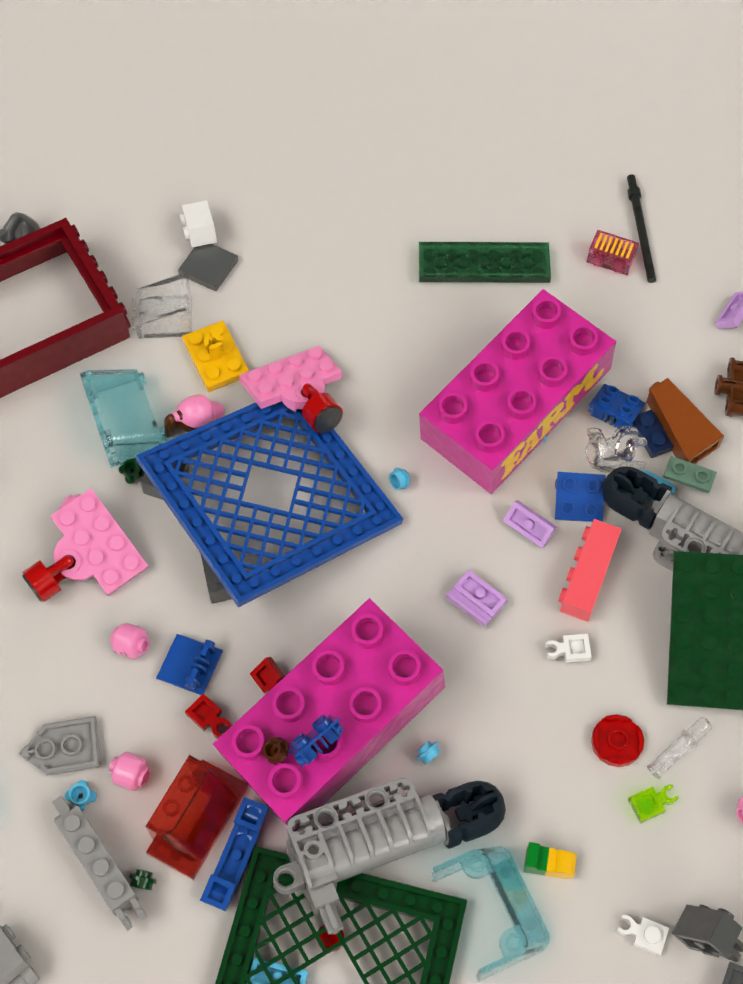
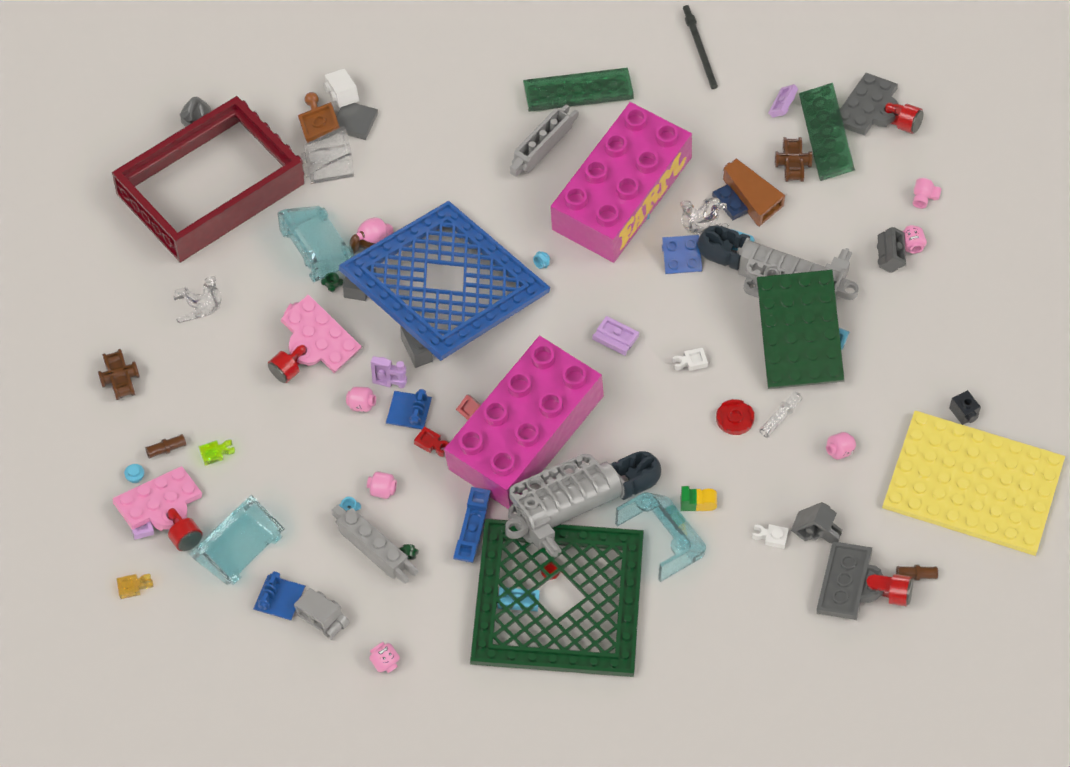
camera: 10 degrees left, 5 degrees down
(65, 746) = (328, 477): light grey tile -> none
(163, 260) = (318, 120): none -> dark orange plate
(165, 610) = (387, 374): none -> lavender plate
(193, 815) = (436, 505): clear red windscreen -> none
(215, 355) = (377, 189): yellow plate -> none
(275, 750) = (492, 442): reddish brown plate -> none
(299, 384) = (450, 199): bright pink plate -> none
(324, 726) = (525, 423): blue hinge -> none
(428, 321) = (542, 140): none -> light grey hinge
(428, 751) = (598, 442): medium azure plate -> none
(529, 523) = (647, 278): lavender plate -> none
(590, 569) = (697, 305): coral brick -> none
(612, 252) = (679, 69): clear pink brick -> none
(617, 404) = (699, 183): blue hinge -> none
(650, 804) = (765, 453): clear neon green plate -> none
(689, 474) = (762, 227): sand green bracket -> none

